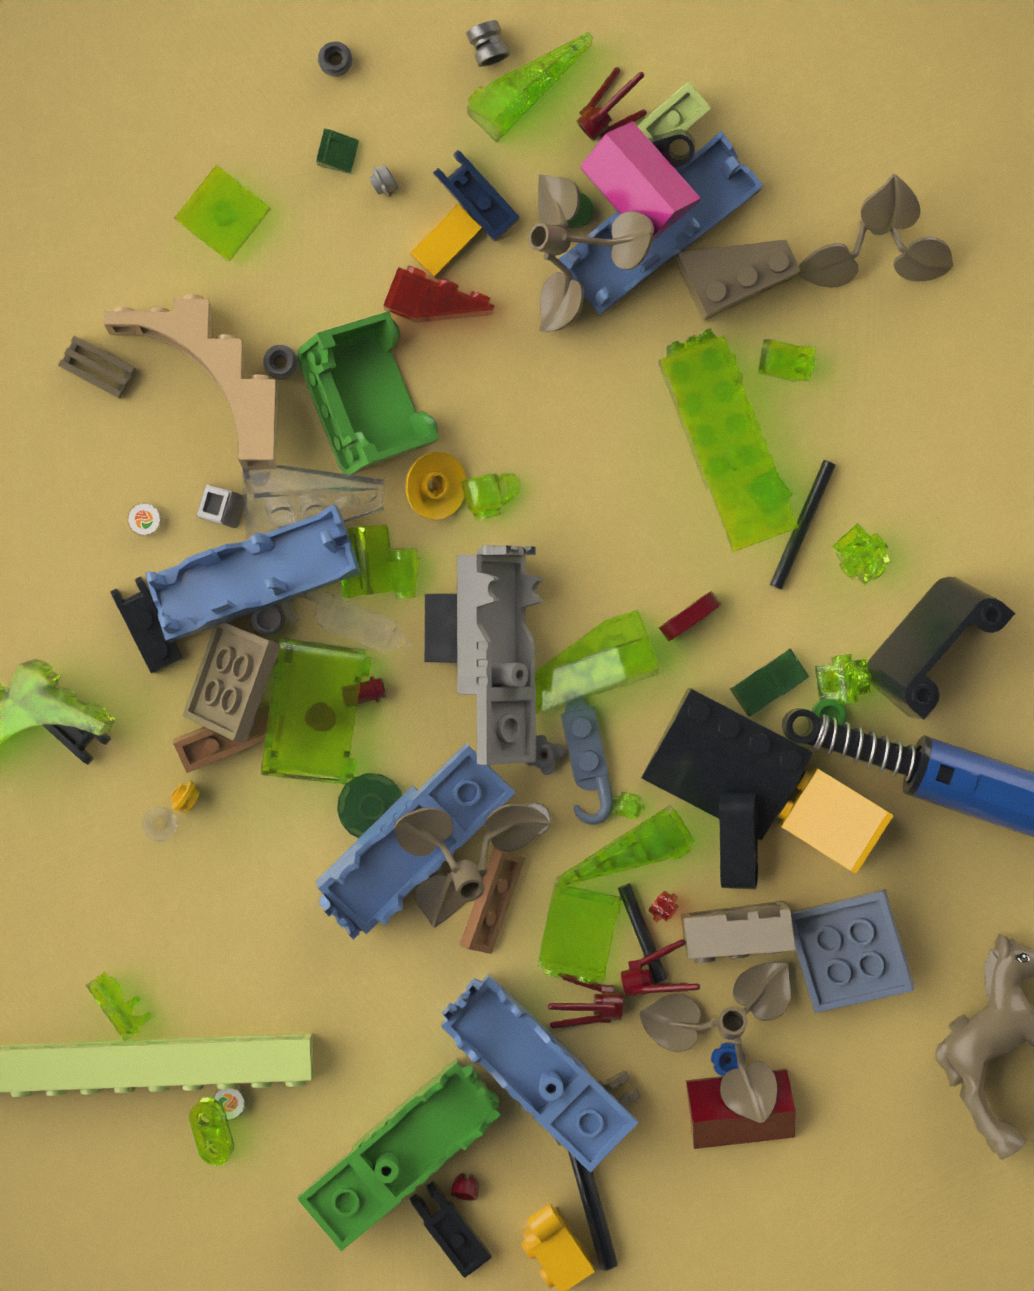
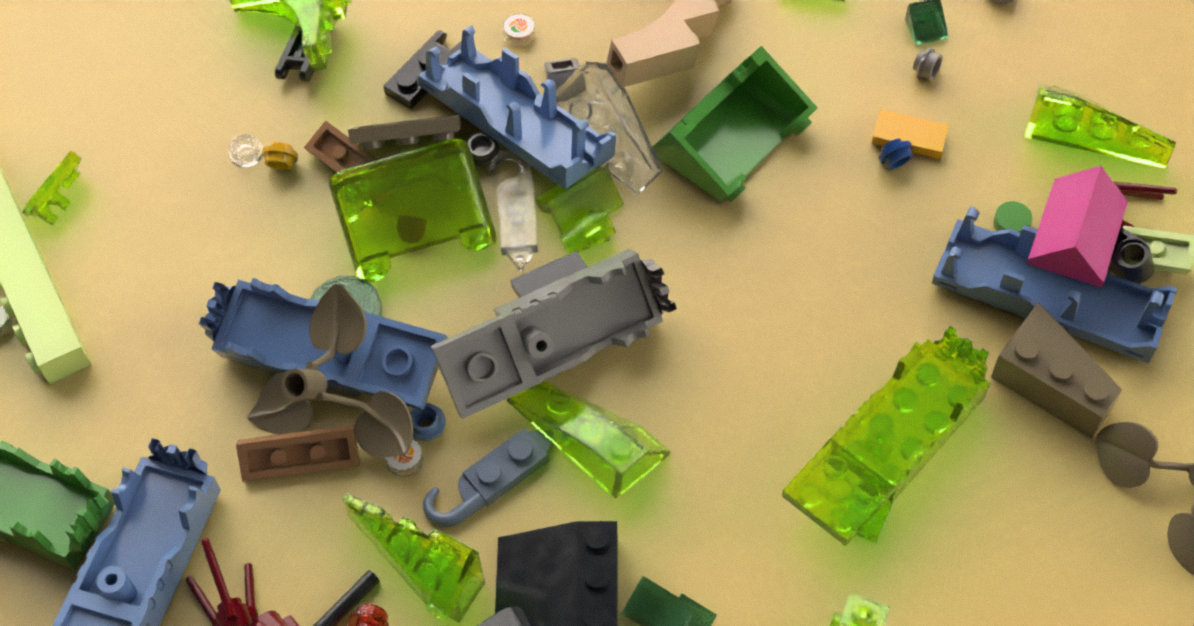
camera: 65 degrees right, 30 degrees down
(275, 352) = (718, 61): flat silver plate -> none
(371, 690) = (459, 257): dark red pin -> none
(426, 300) = (847, 141): clear red slope -> none
(447, 489) = (702, 215): yellow dish -> none
(463, 268) = (896, 153): none -> blue plate
(478, 198) = (965, 139): dark blue hinge -> none
(484, 493) = (701, 262): clear neon green piece -> none
(488, 43) = (1104, 82): flat silver wheel -> none
(522, 780) = (430, 413): none -> medium blue plate
(553, 753) = (478, 442): flat silver plate -> none
(558, 204) = (974, 184): dark tan plant -> none
(578, 933) = (301, 553): clear neon green panel -> none
(628, 805) = (463, 531): clear neon green plate -> none
(689, 616) = (692, 497): dark red beam -> none
(786, 360) = (1005, 461): clear neon green bracket -> none
(804, 521) = (853, 565): black bar -> none

